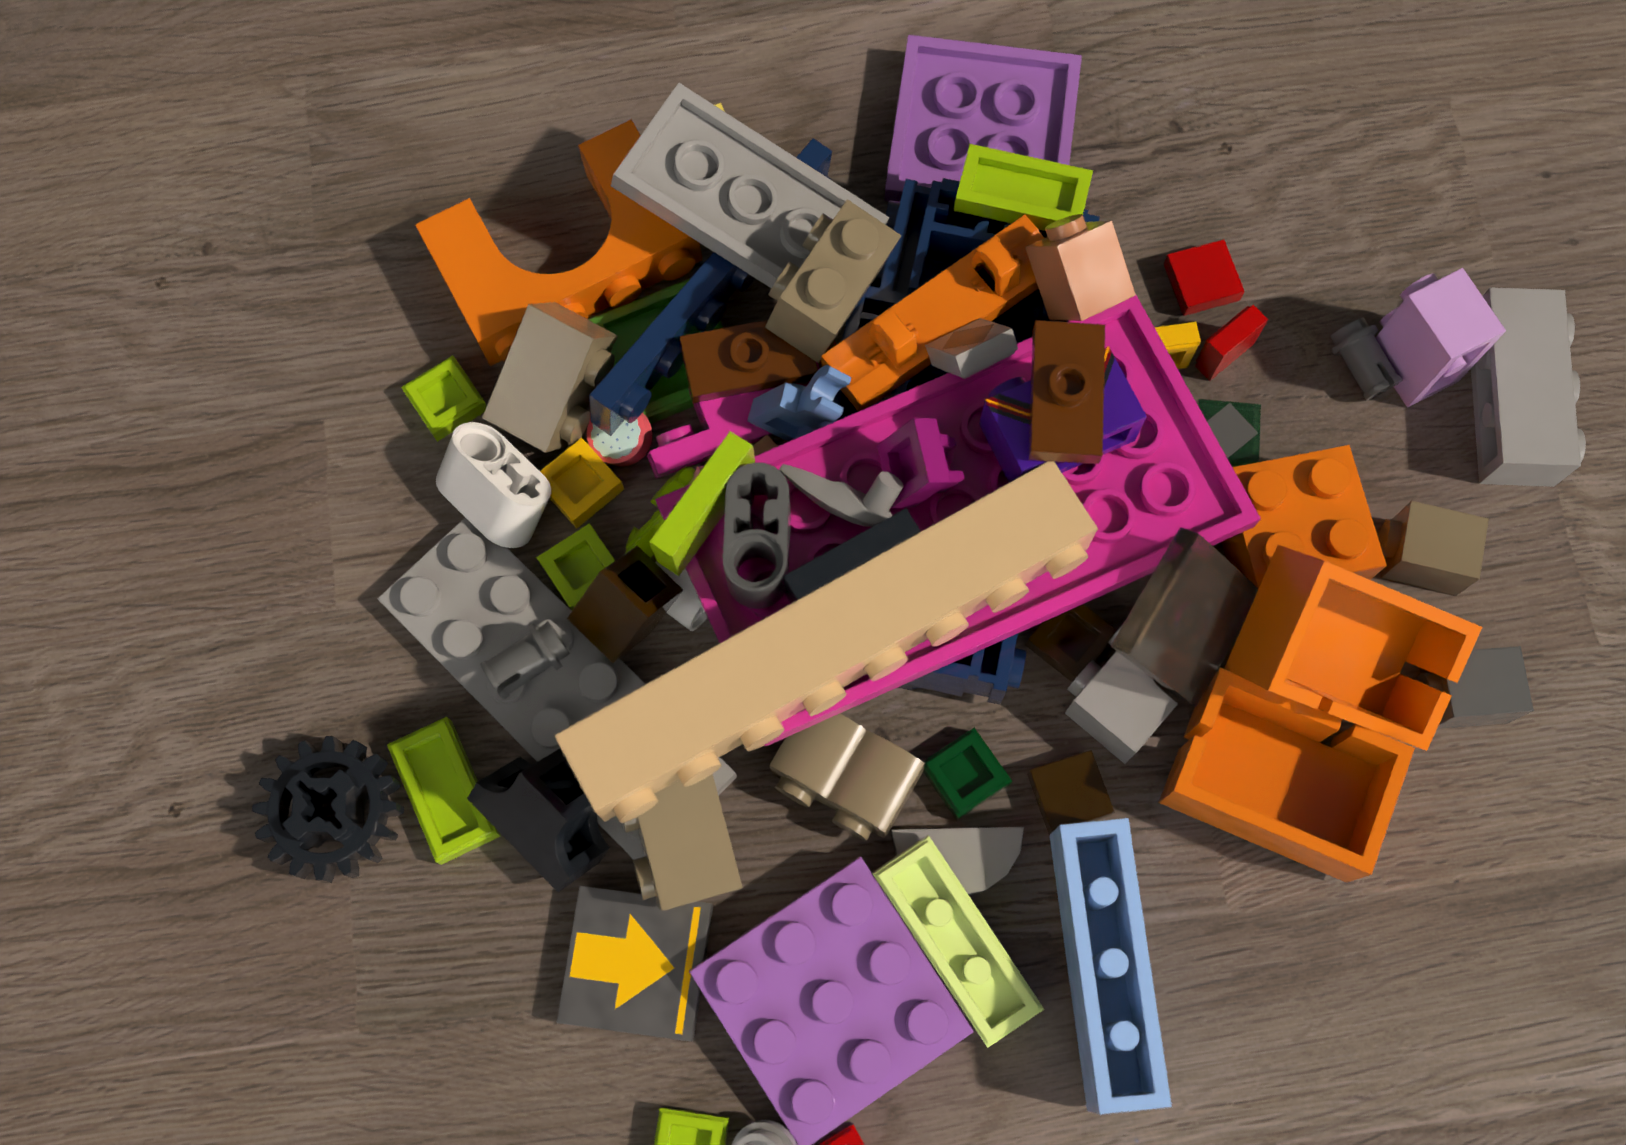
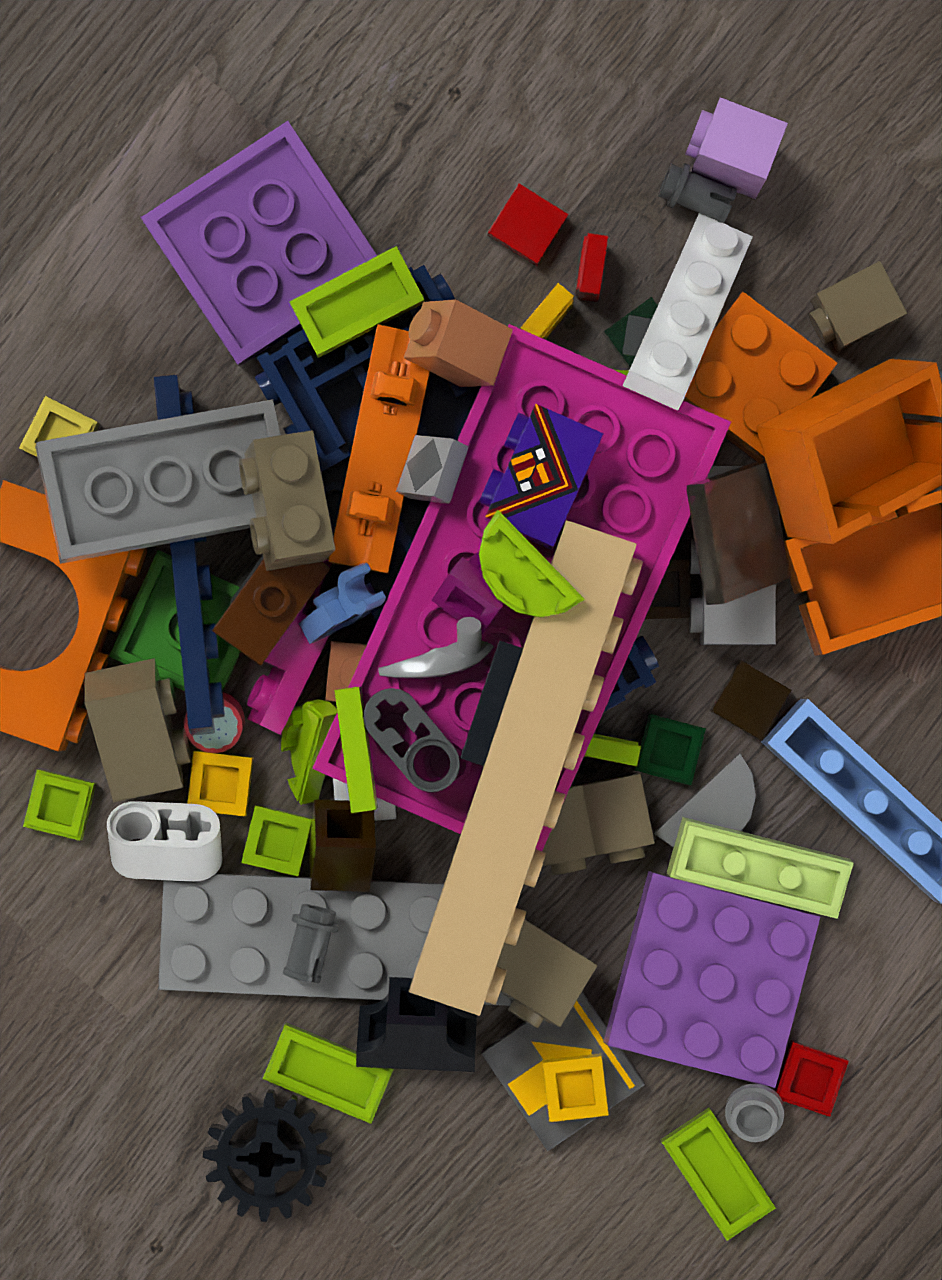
camera: 40 degrees left, 15 degrees up
(628, 984) = (575, 1087): none -> yellow plate
(914, 723) = (613, 749): none -> lime tile
(975, 467) = (521, 574): none -> lime tile
(1067, 392) = (537, 466): reddish brown plate -> none
(1287, 420) = (687, 312): none -> white plate
(1527, 392) = (828, 119): light grey brick -> none

